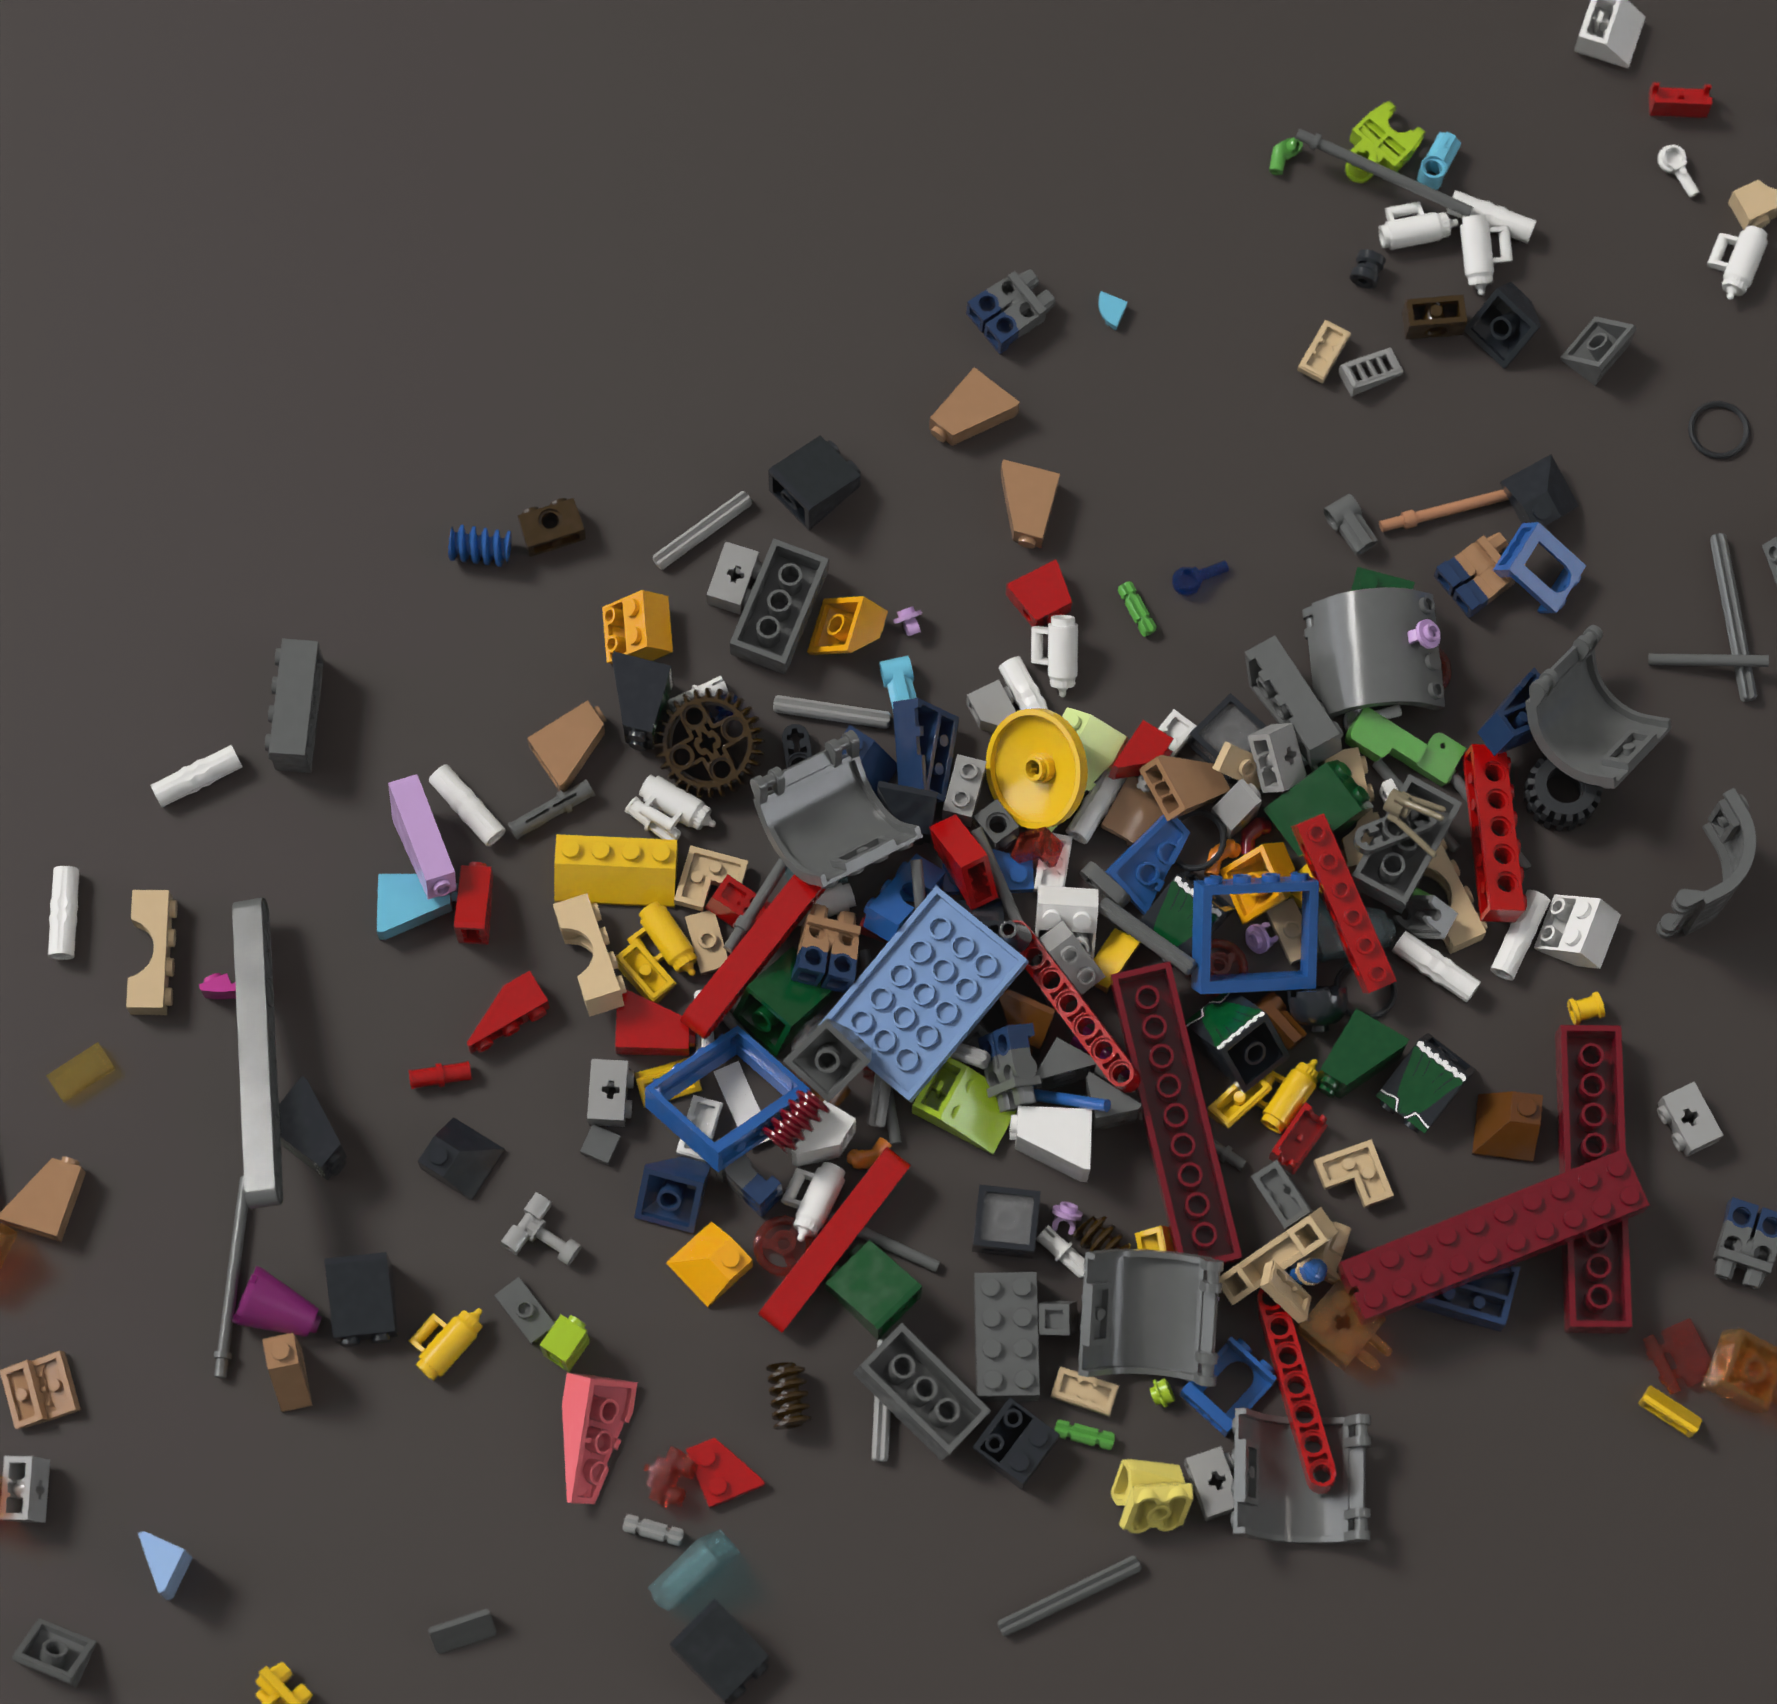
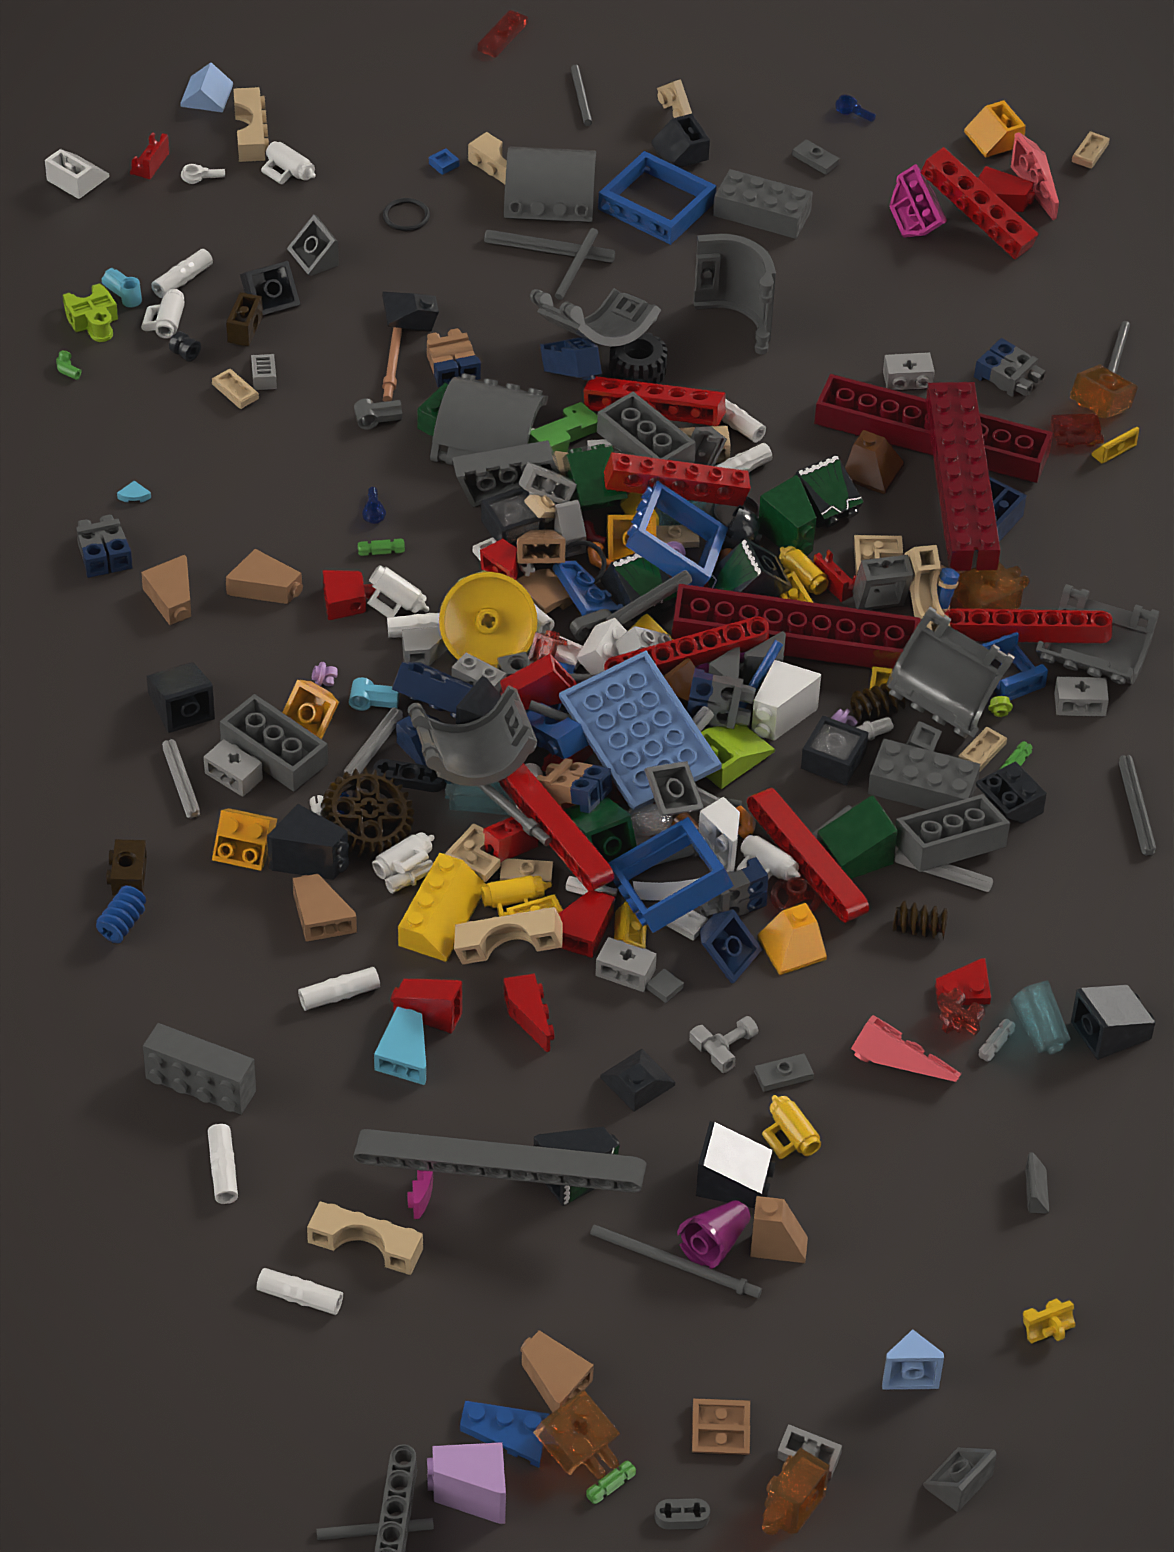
camera: 70 degrees left, 25 degrees down
(80, 1072) = (448, 1321): clear yellow tile -> none
(421, 837) = (359, 1010): lavender slope -> none
(440, 1075) = (562, 1070): red pin -> none
(565, 1342) = (826, 1041): lime brick -> none
(579, 793) = (367, 928): dark grey pin -> none
(796, 1120) = (712, 825): dark red piece -> none
(1016, 935) = (618, 655): black cone -> none
(1151, 1495) = (1080, 727): light yellow piece -> none
(1285, 1291) = (956, 602): tan plate -> none
(1319, 143) = (74, 333): dark grey bar -> none
(1391, 840) = (633, 434): dark grey beam -> none
(1401, 804) = (625, 410): dark tan plant -> none
(1426, 633) = (495, 372): lavender plate -> none
(1478, 250) = (207, 281): white piece -> none
(1517, 553) = (459, 324): blue panel -> none
(1578, 930) = (745, 384): white slope -> none
(1586, 1008) = (804, 395): yellow bush -> none

